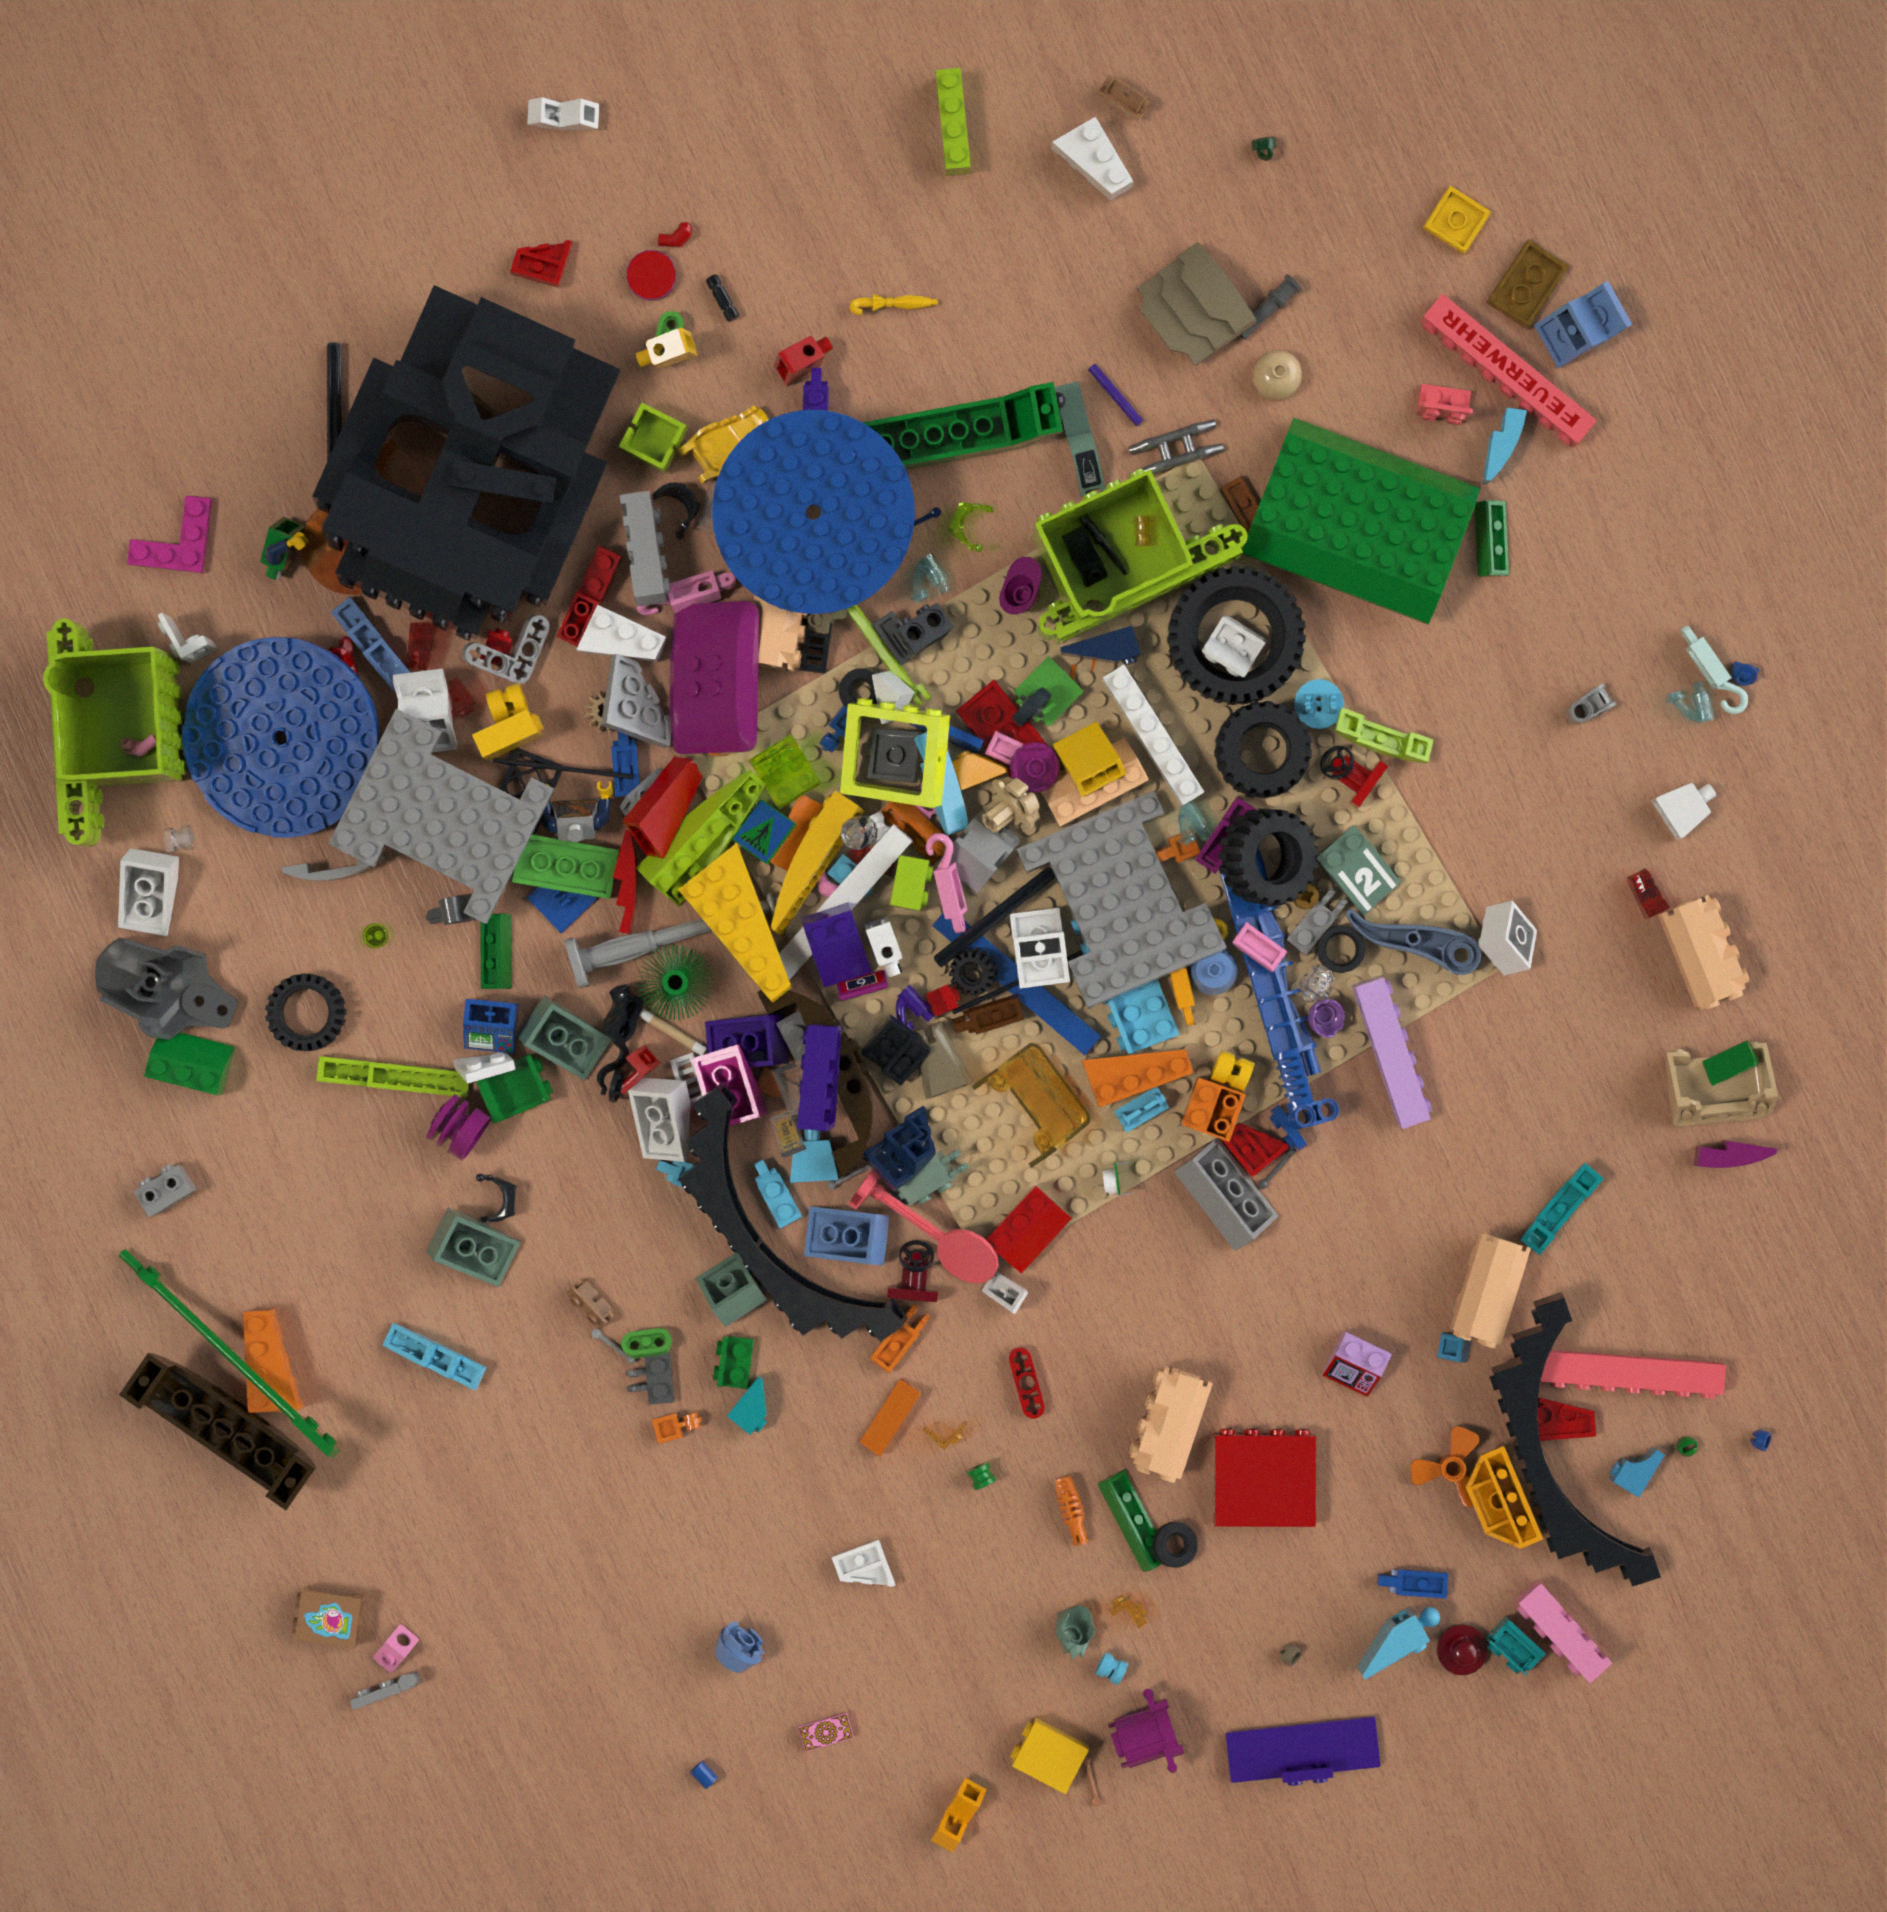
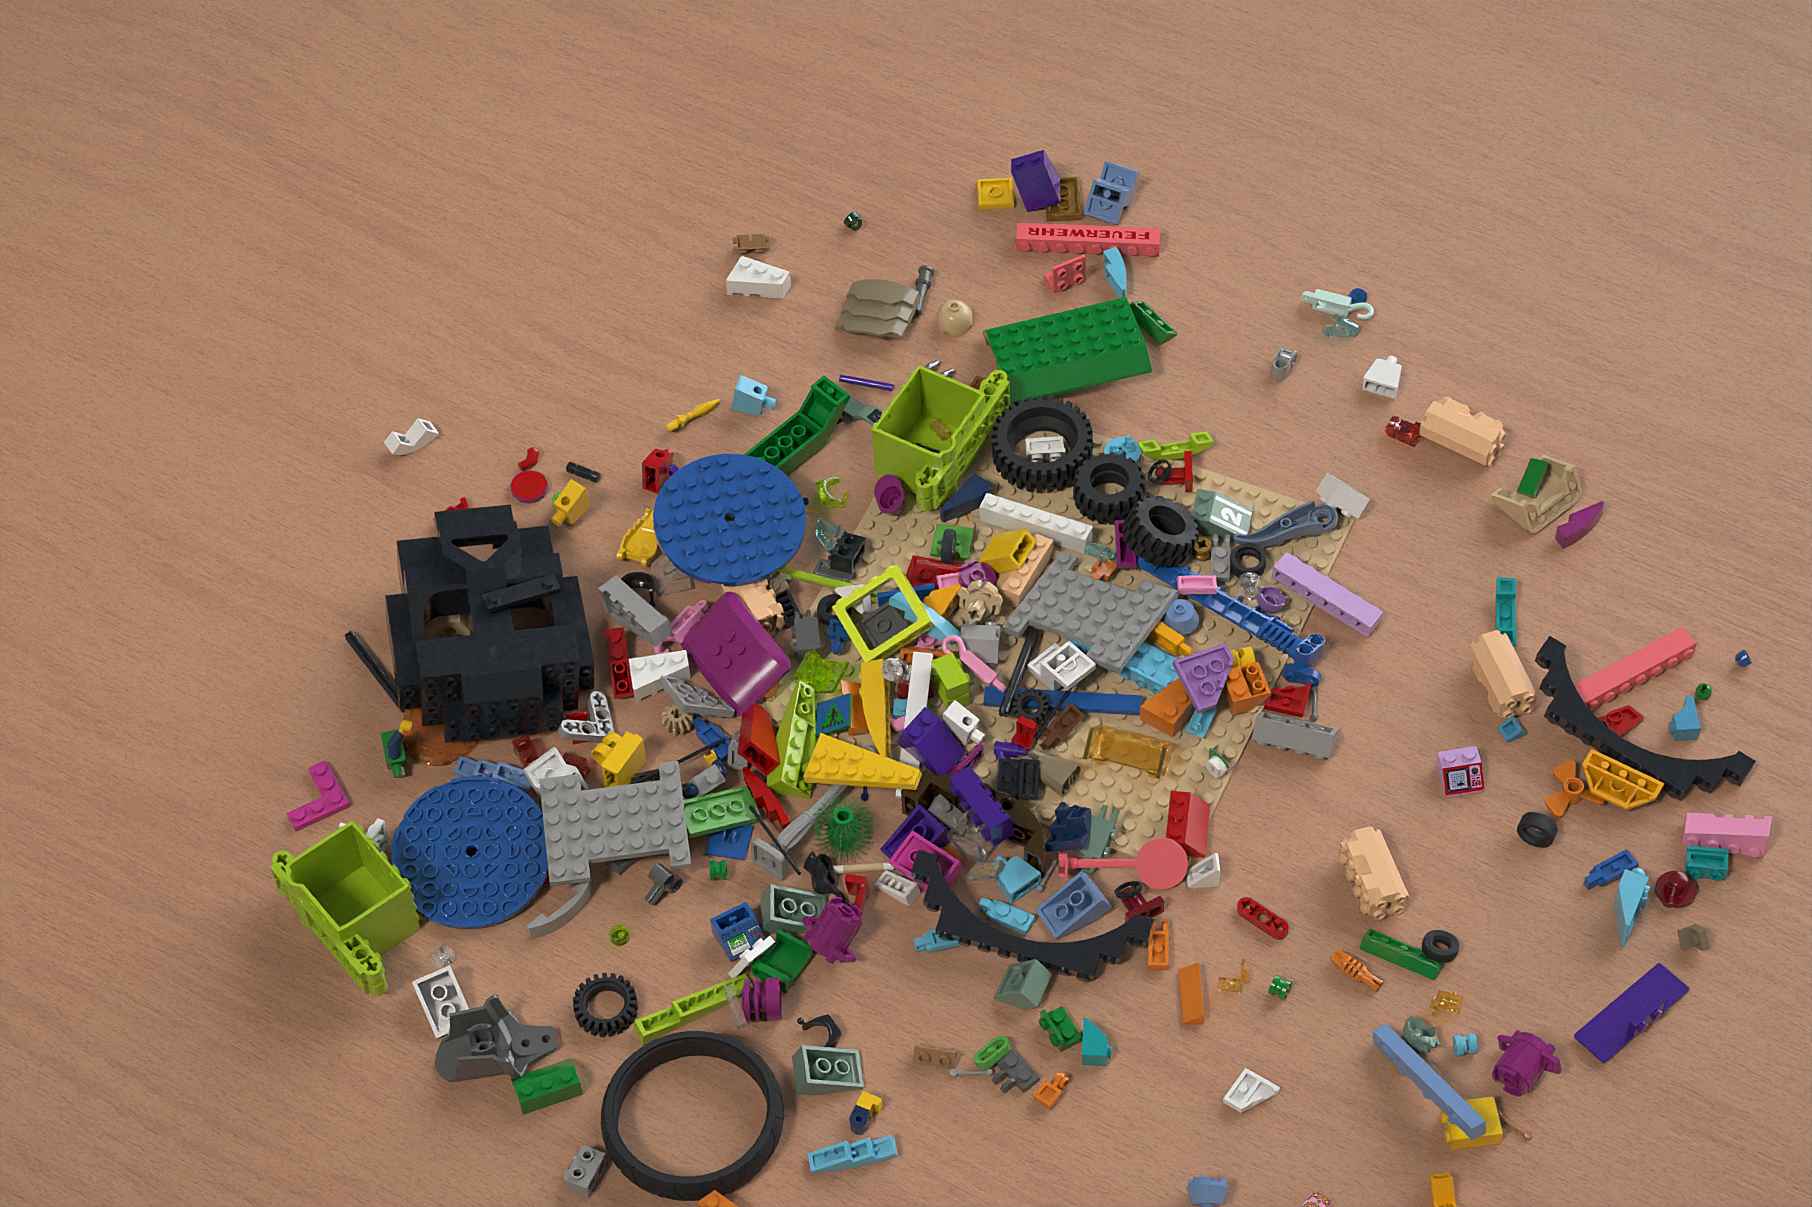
camera: 35 degrees left, 35 degrees down
(207, 1208) = (683, 1045): none -> black tyre
(428, 1111) = (735, 1006): none -> clear tile
(468, 1322) = (863, 1111): none -> leg
(496, 952) = (706, 893): green slope -> none
(522, 932) = (718, 869): none -> green wheel
(578, 1103) = (834, 930): none -> magenta container
(594, 950) = (775, 840): none -> black axle
(654, 438) = (595, 558): lime piece -> none
(661, 1118) = (897, 913): white slope -> none
(806, 707) = (806, 635): none -> dark grey hinge
(953, 121) = (669, 319): lime arch -> none
(962, 326) = (751, 397): none -> medium azure torso
(1035, 1695) = (1430, 1083): none -> medium blue piece
(1172, 1078) = (1204, 675): none -> medium lavender plate
(1265, 1478) = (1464, 871): red panel -> none
(1290, 1655) = (1571, 962): dark tan hinge -> none
(1375, 1491) = (1538, 821): none -> black tyre
(1432, 1717) = (1693, 937): none -> dark tan bracket
(1506, 251) = (1036, 180): none -> dark purple slope

